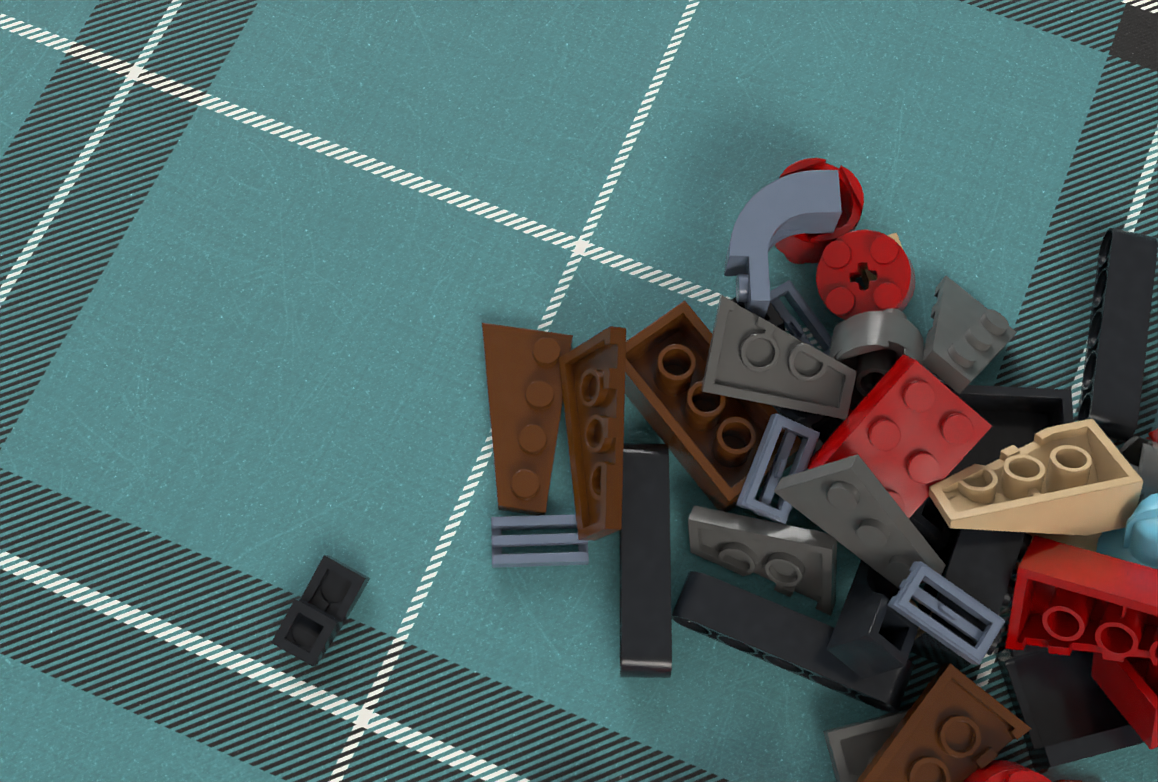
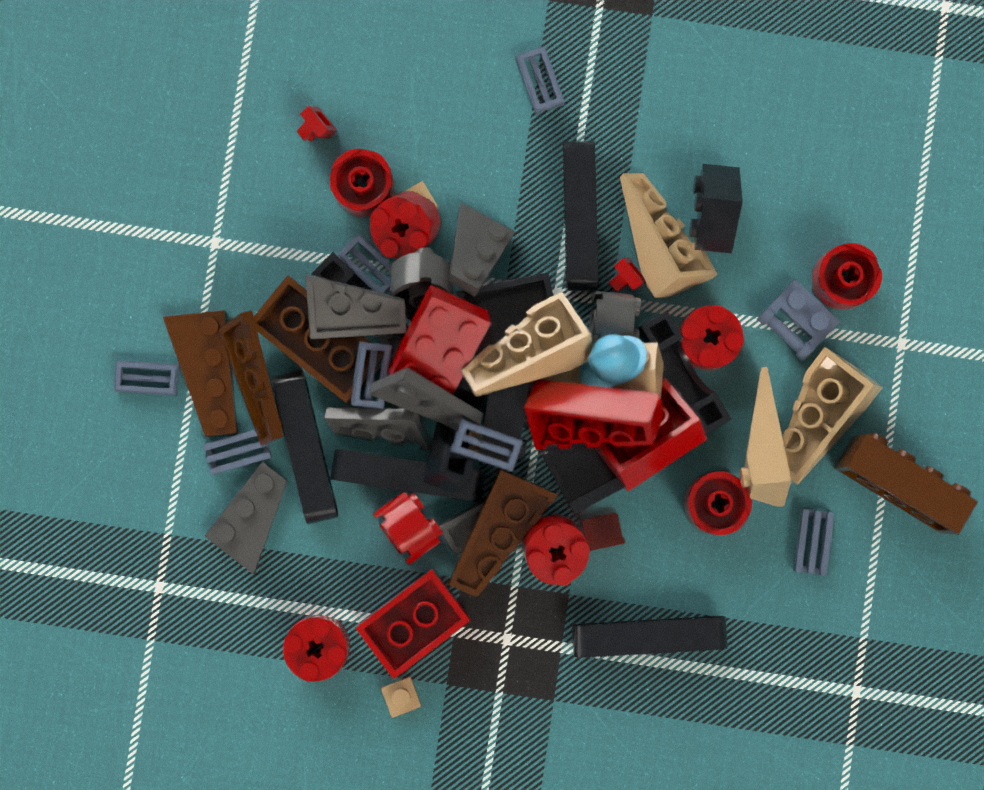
camera: 10 degrees left, 15 degrees up
(321, 610) = (113, 530): black slope -> none
(428, 419) = (173, 379): none -> sand blue tile
(530, 645) = (248, 518): none -> dark grey wing
(761, 126) = (315, 125): none -> red tile
(781, 209) = (330, 202): sand blue arch -> none
(781, 718) = (408, 527): none -> red brick
(1074, 178) = (548, 104): none -> sand blue tile

